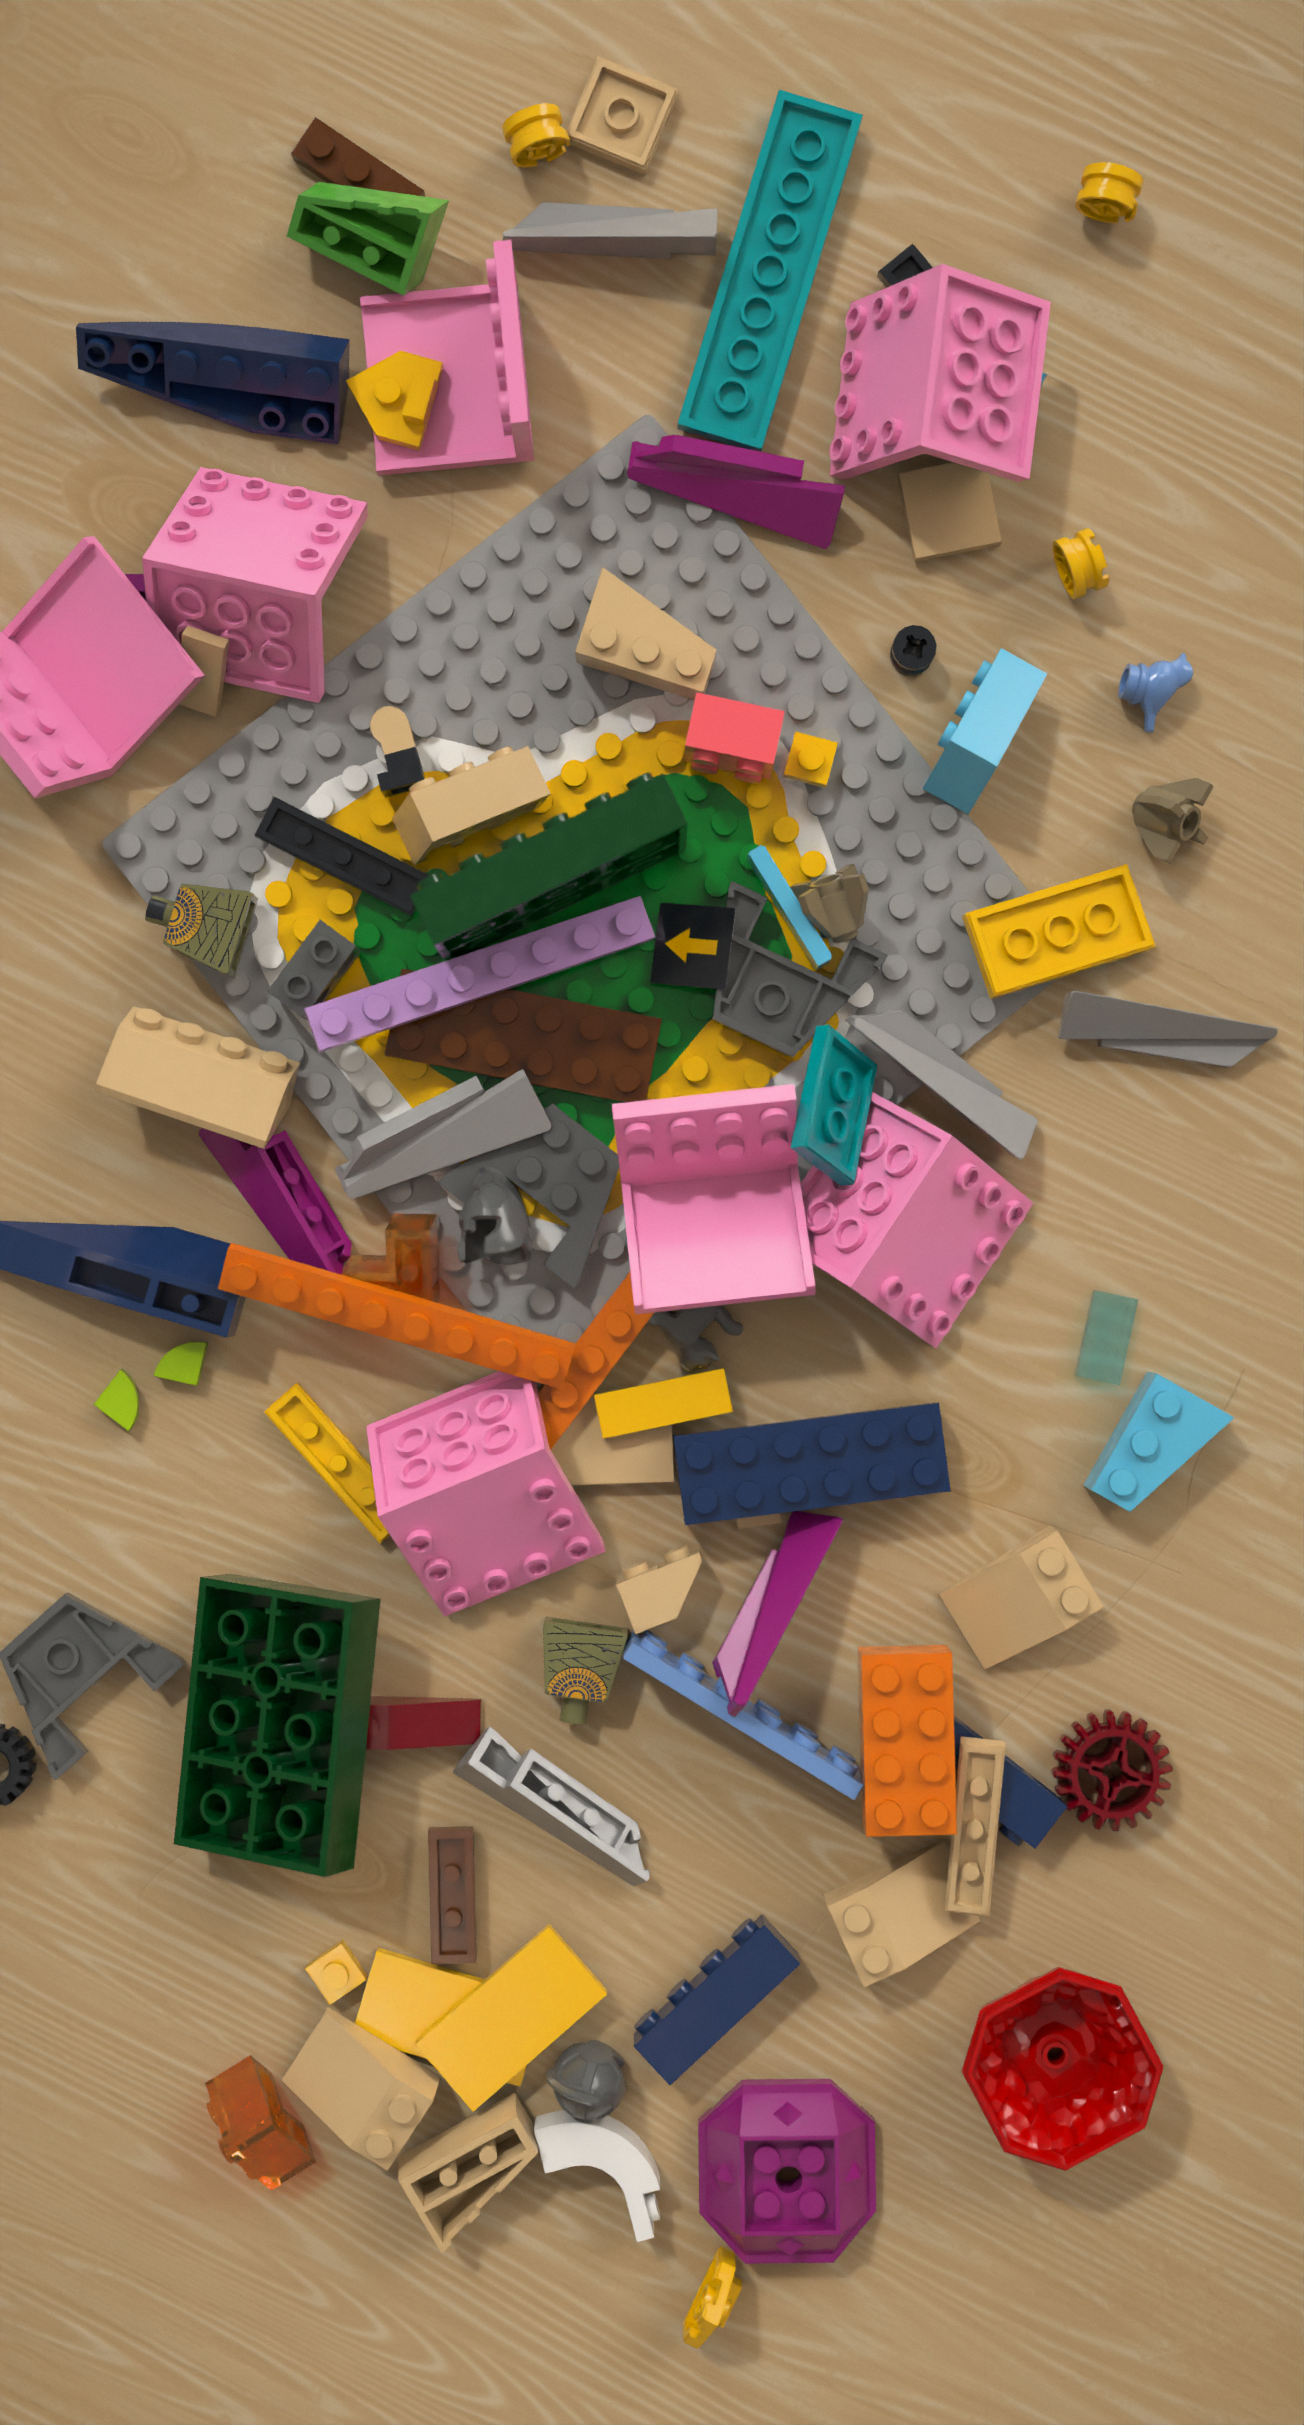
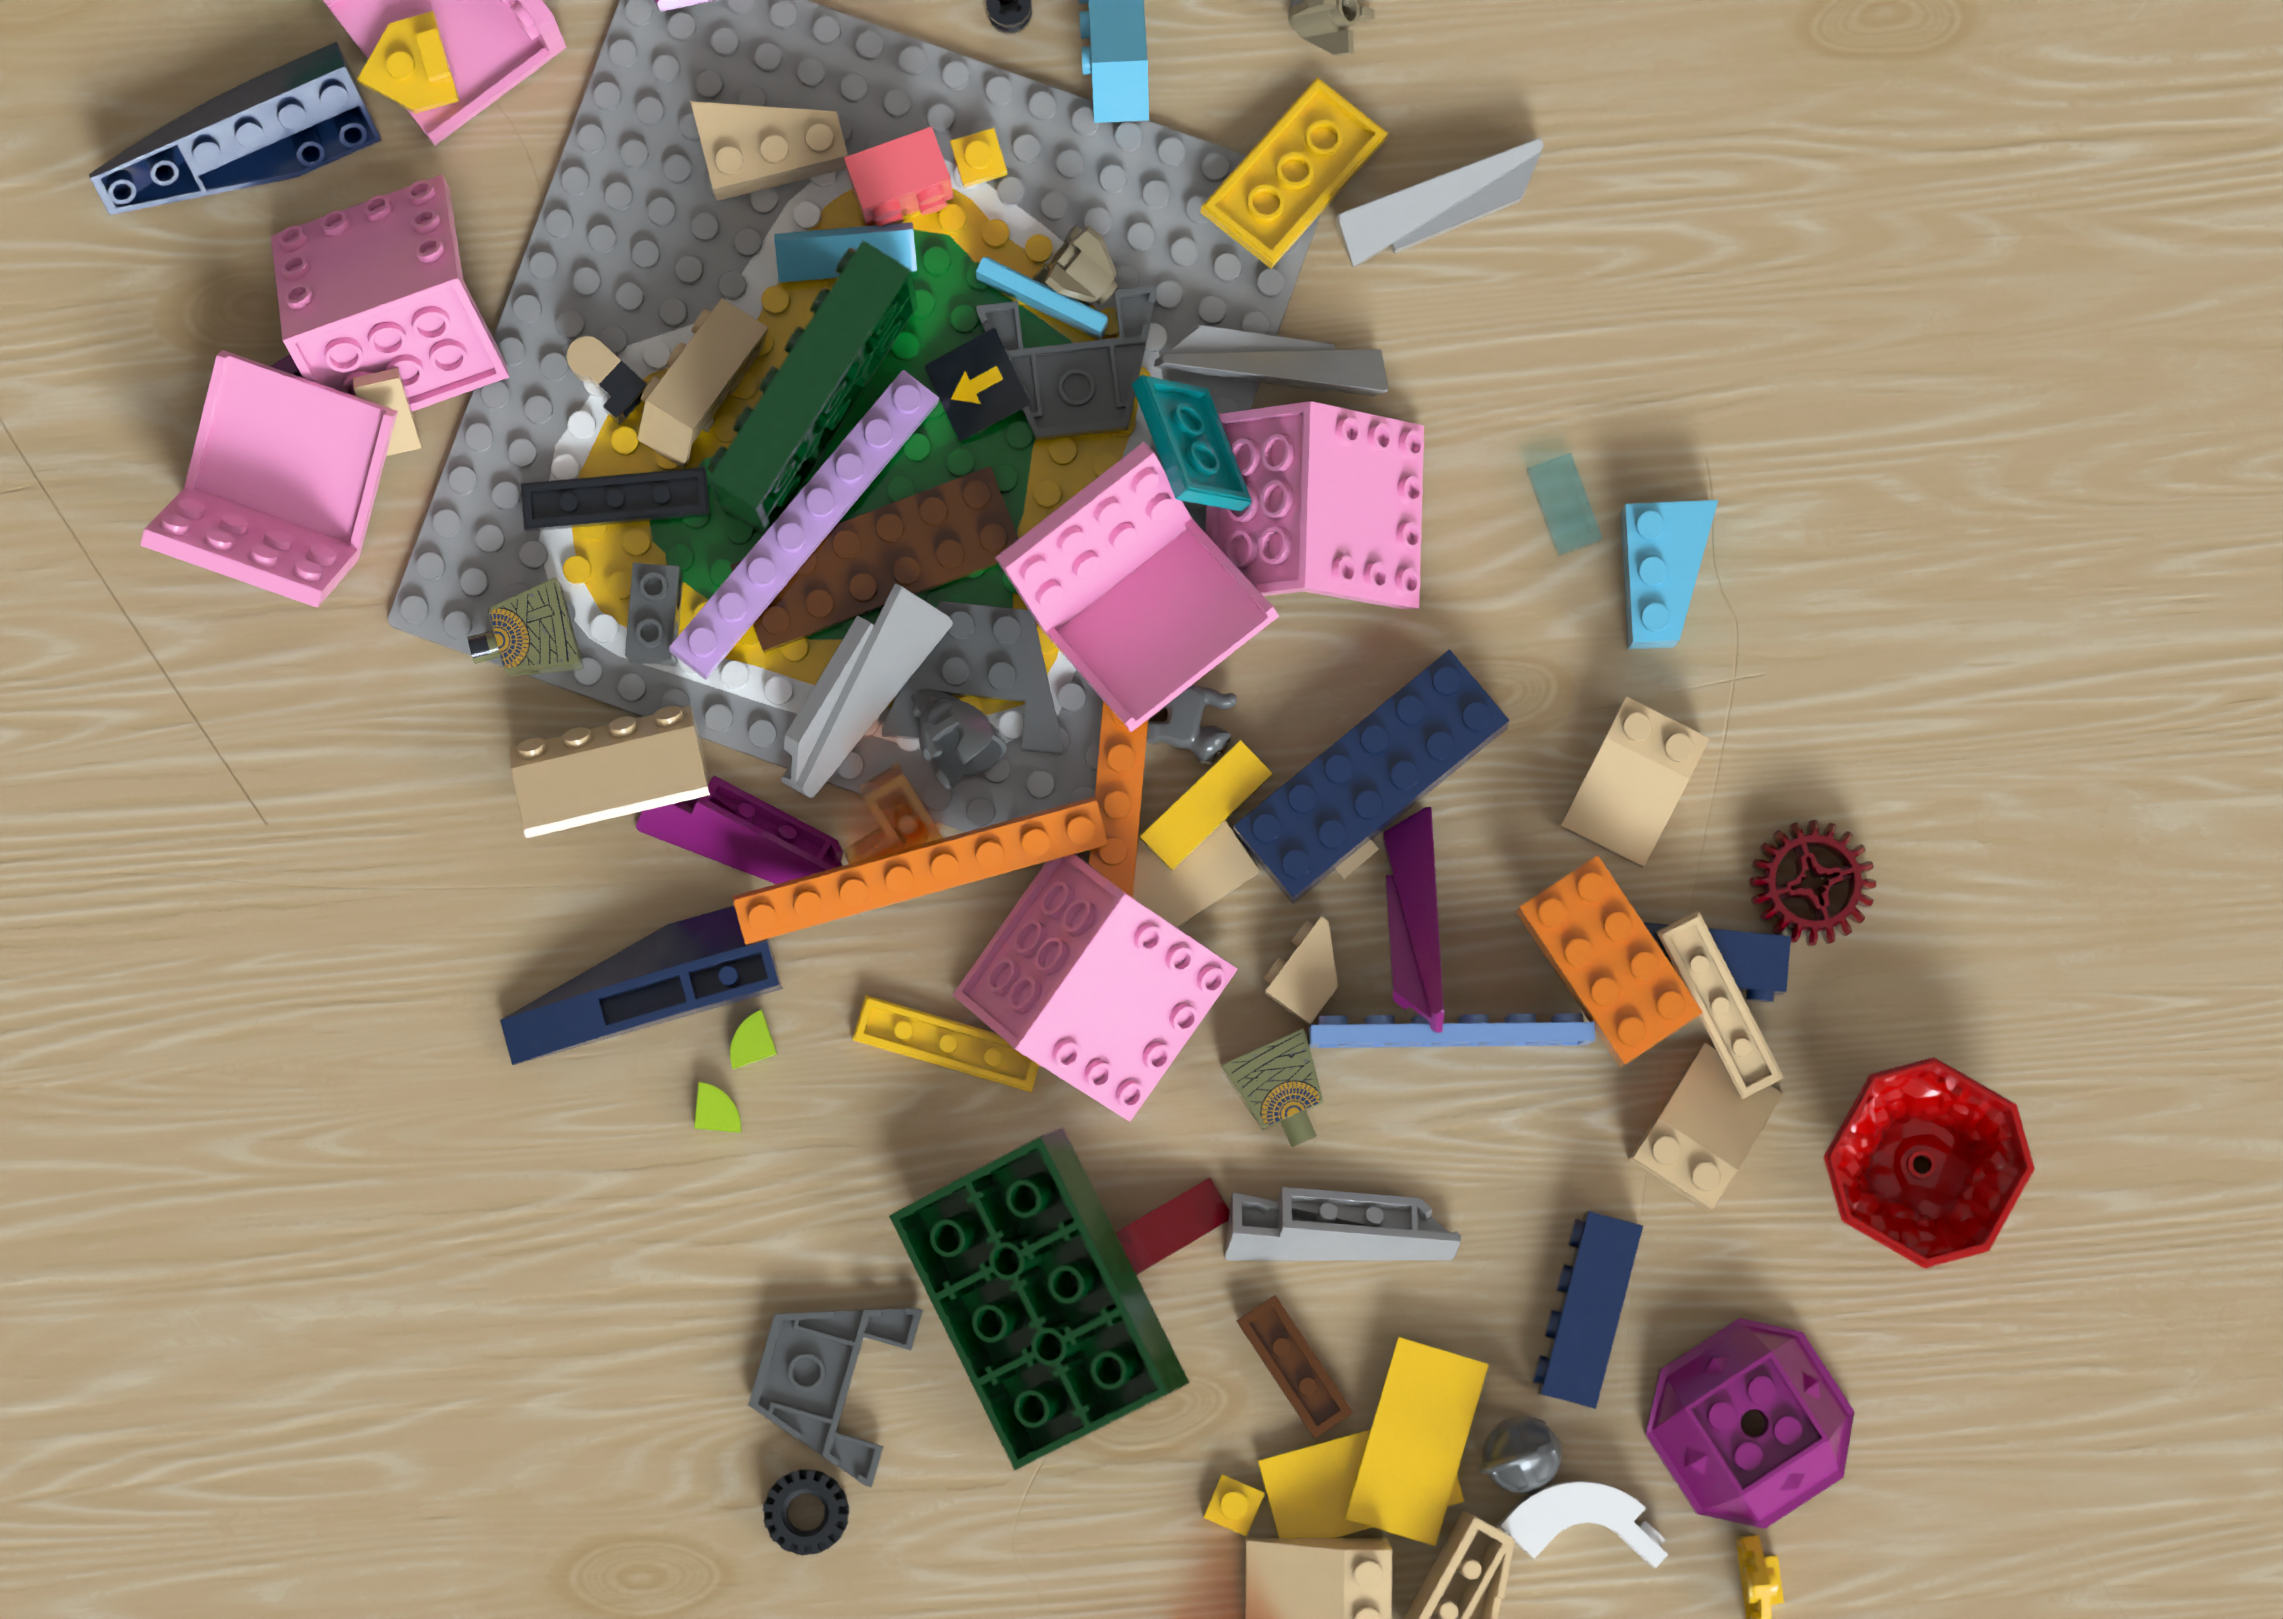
camera: 35 degrees left, 5 degrees down
(630, 756) = (818, 252): none -> medium azure tile

